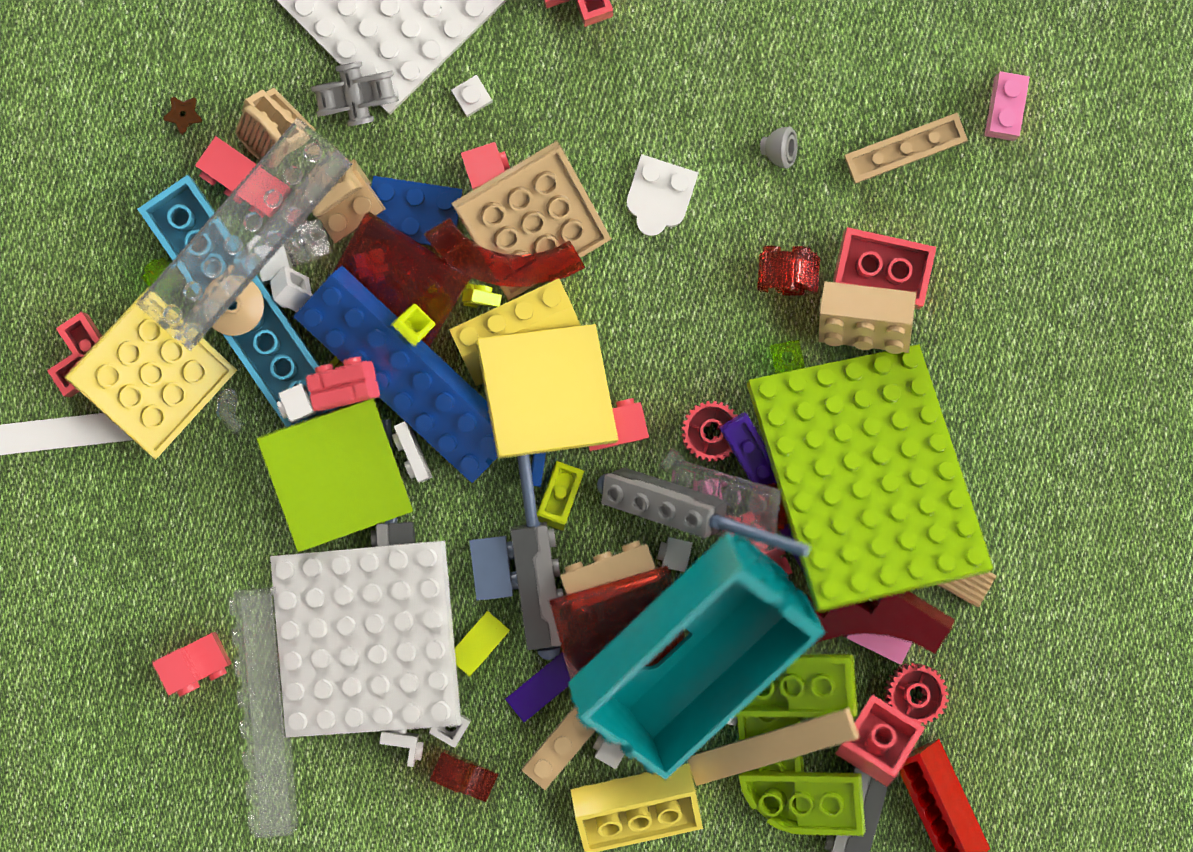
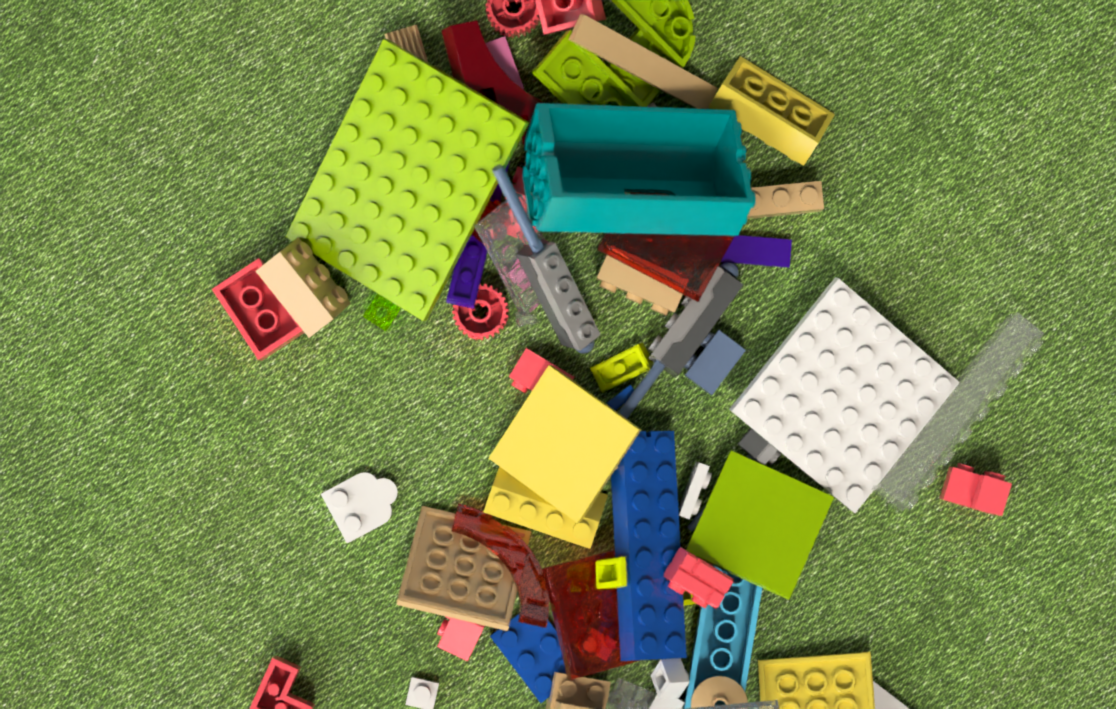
camera: 135 degrees left, 0 degrees up
(226, 410) = (790, 640): clear arm -> none
(295, 403) = (741, 597): white plate -> none
(404, 739) = (882, 304): white bracket -> none
(451, 737) = (848, 275): white plate -> none
(463, 776) = (865, 242): clear red arch -> none
(479, 643) = (770, 320): neon yellow slope -> none
(480, 295) = (546, 551): neon yellow plate -> none
(608, 753) = (756, 164): white plate -> none
(675, 554) = (583, 254): white plate -> none
(780, 147) = (249, 457): light grey brick -> none
(788, 271) = (325, 368): clear red brick -> none
(905, 148) = (166, 376): tan plate -> none
(1007, 106) = (71, 338): bright pink brick -> none

